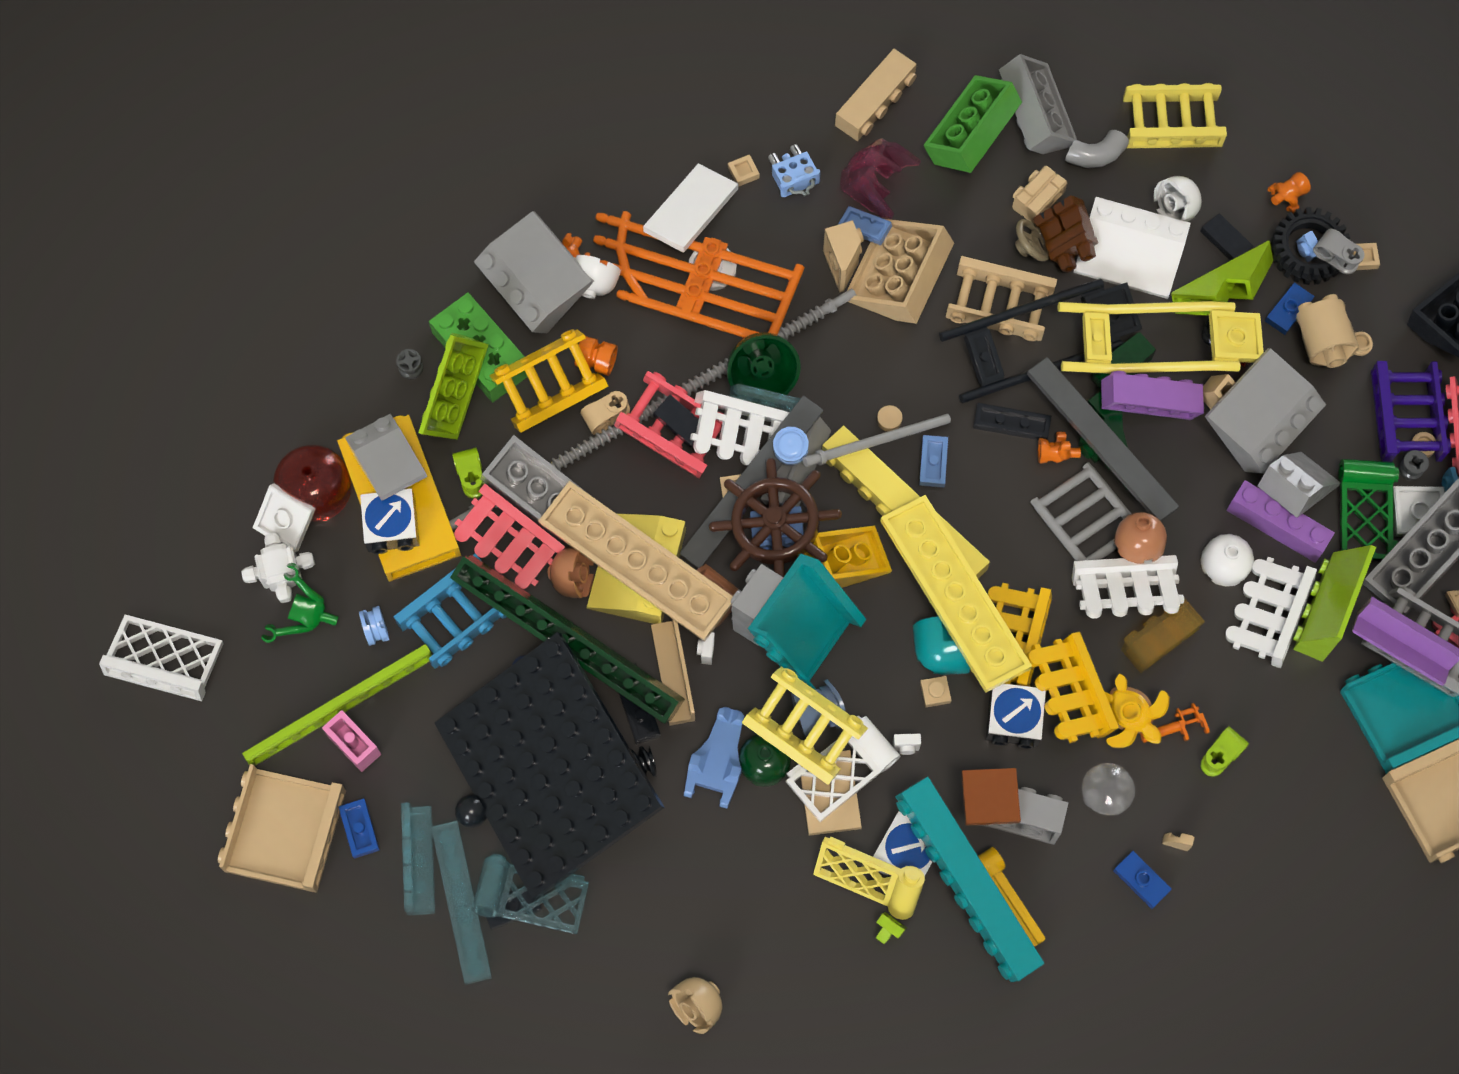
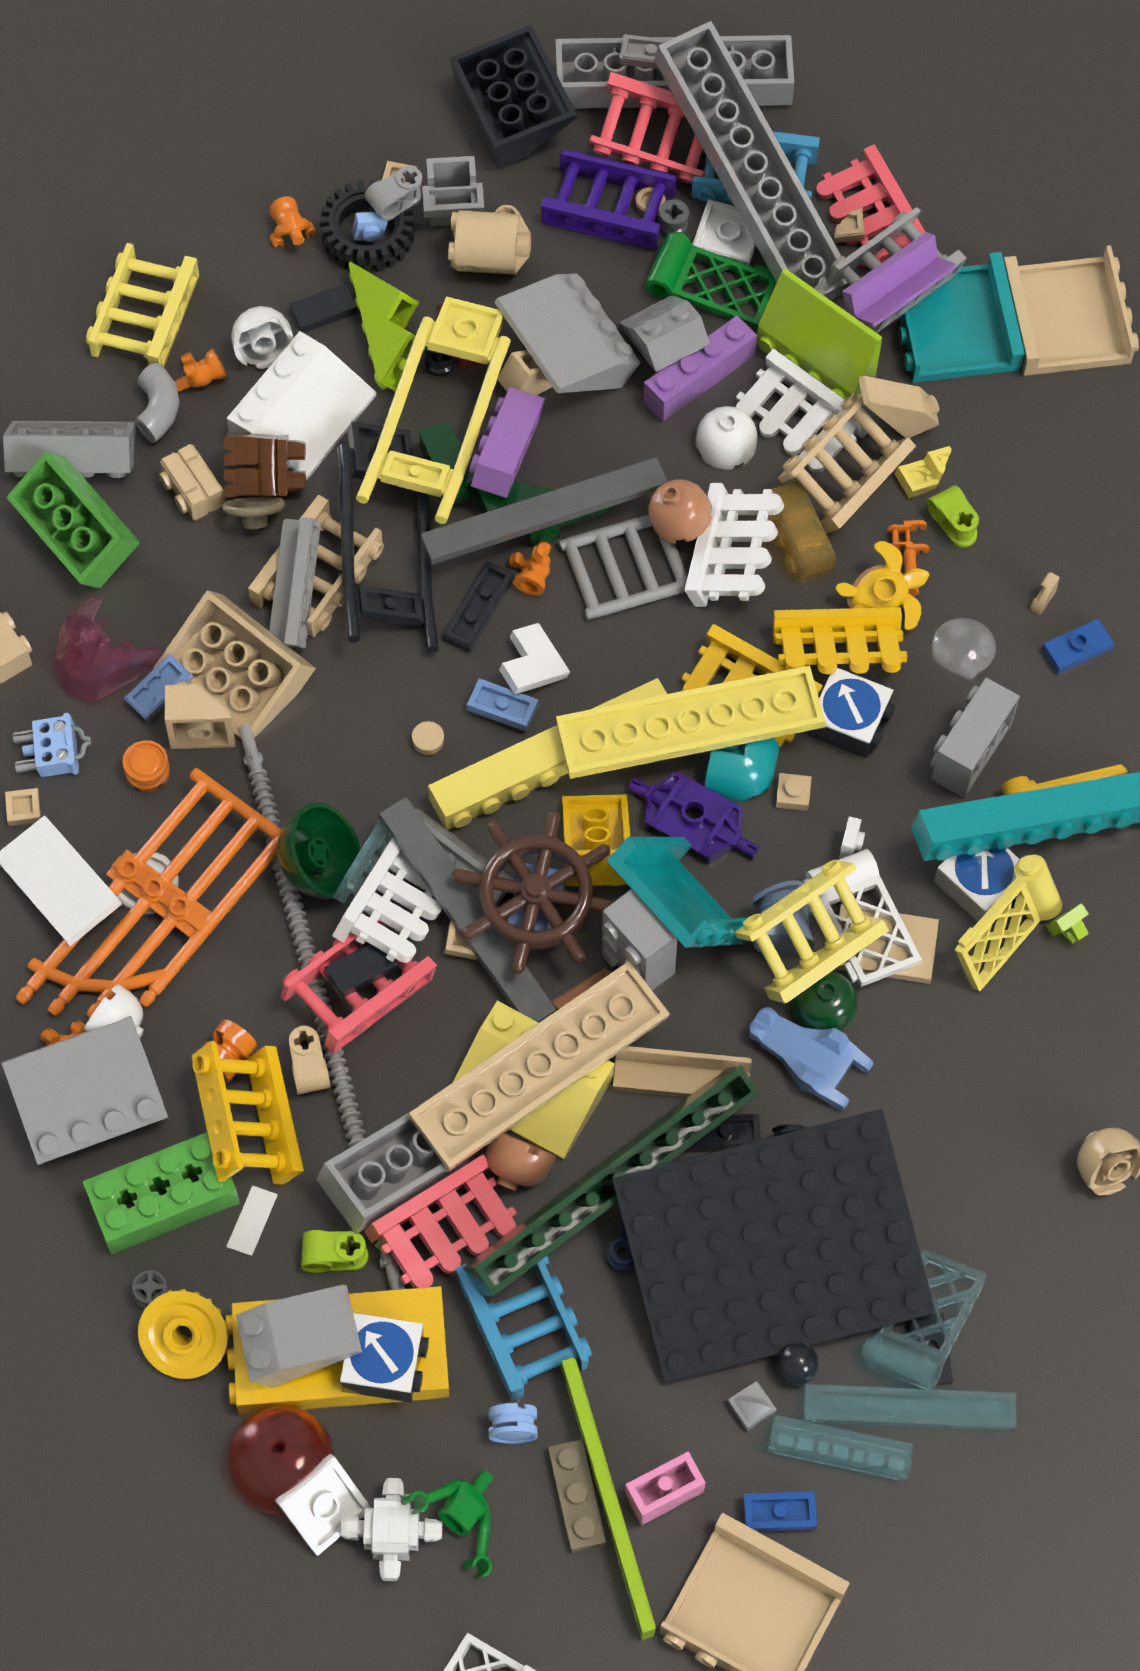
camera: 75 degrees left, 5 degrees down
(335, 684) = (576, 1496): none -> dark tan plate
(379, 390) = (170, 1349): none -> yellow gear
(434, 789) = (751, 1406): none -> light grey tile
(453, 387) = (218, 1233): lime slope -> none
(486, 415) = (252, 1220): none -> white sticker
(706, 649) = (668, 1031): white plate -> none
(790, 445) = (443, 846): light blue wheel -> none
(800, 237) = (146, 765): none -> orange wheel
(821, 457) = (470, 814): light grey bar -> none
(882, 642) = (709, 835): none -> dark purple plate
(974, 477) = (538, 664): none -> white tile
(976, 285) = (295, 581): none -> light grey panel
(991, 796) = (959, 753): dark orange tile -> none
(1136, 172) = (200, 372): none -> orange piece
(1238, 677) = (874, 471): none -> tan fence
(1255, 720) = (924, 474): none -> light yellow slope
(1285, 312) = (436, 274): blue plate -> none
(1299, 676) = (900, 405): none -> tan slope
(1364, 293) = (450, 189): none -> light grey plate

